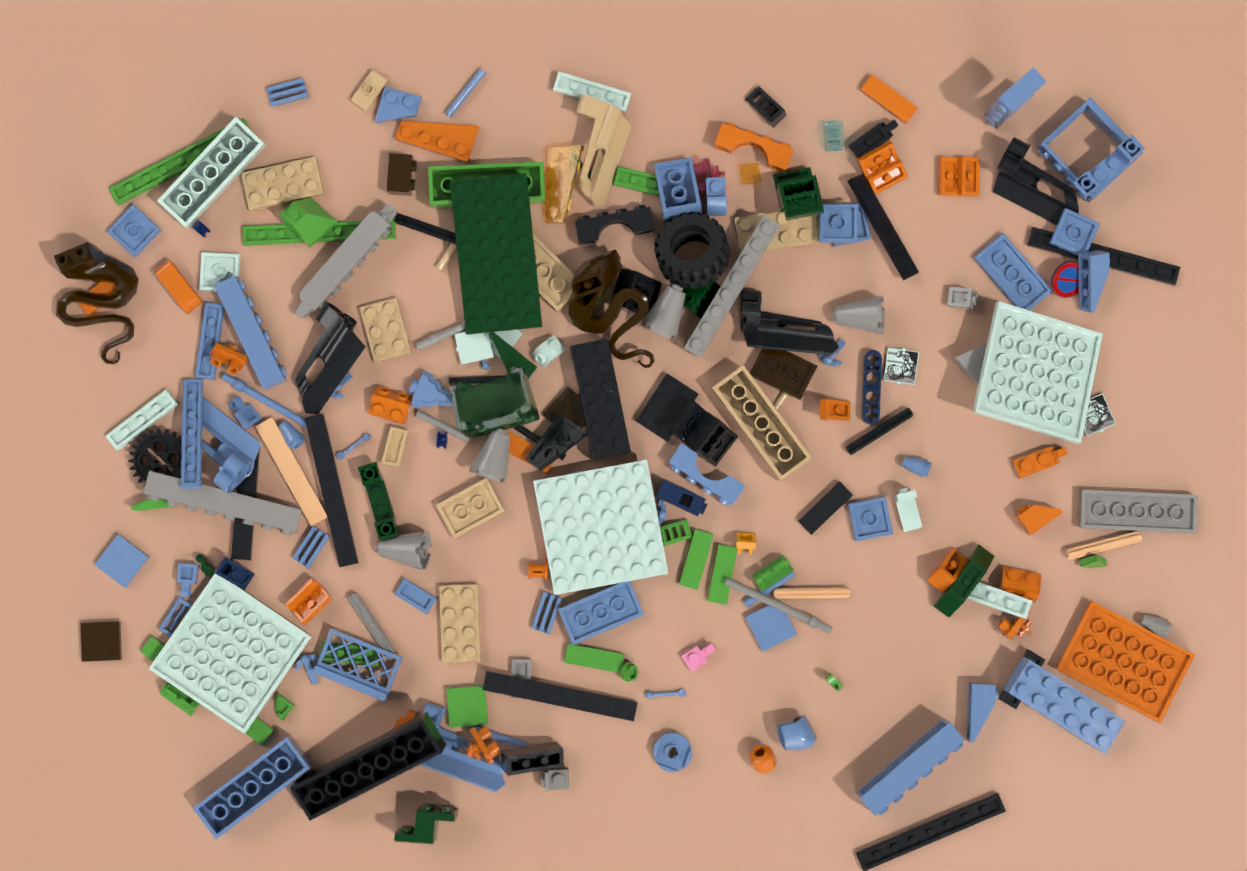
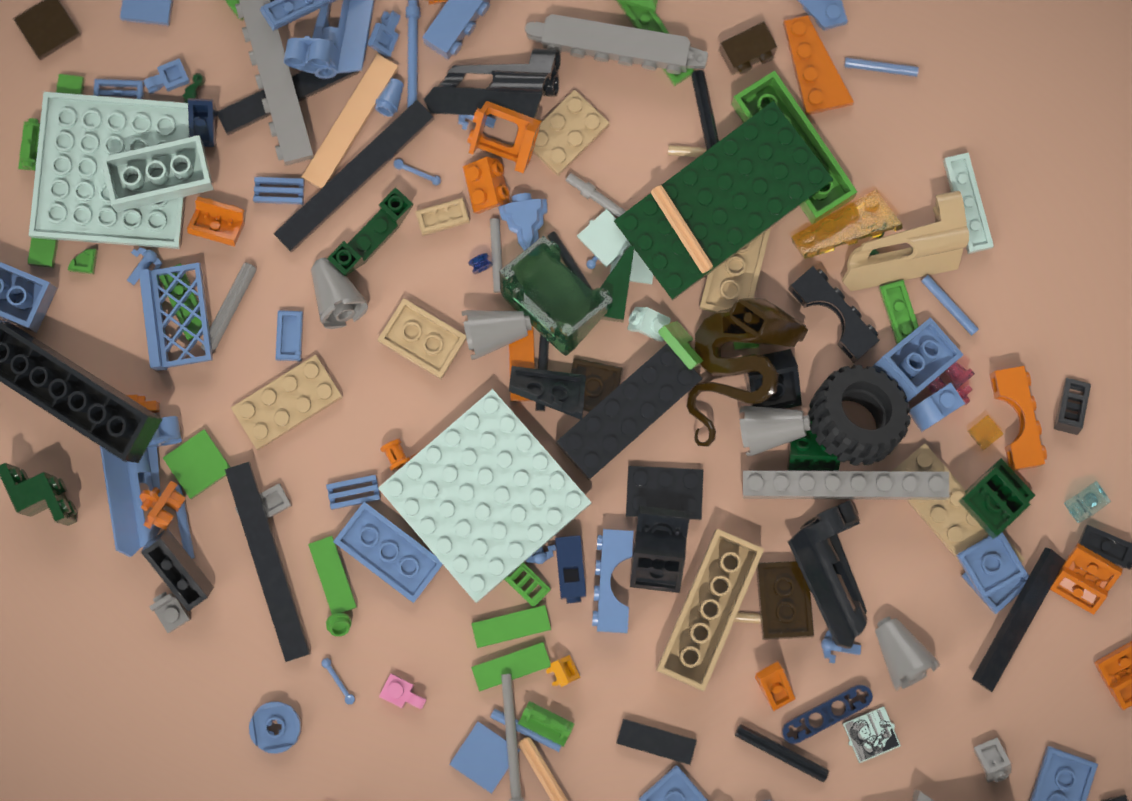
camera: 60 degrees right, 5 degrees down
(253, 622) = (157, 173): none -> light aqua brick
(378, 364) = (525, 140): none -> orange window
(488, 293) = (681, 229): none -> light nougat axle
(570, 339) = (679, 340): none -> bright green tile
(652, 145) = (946, 301): none -> medium blue bar

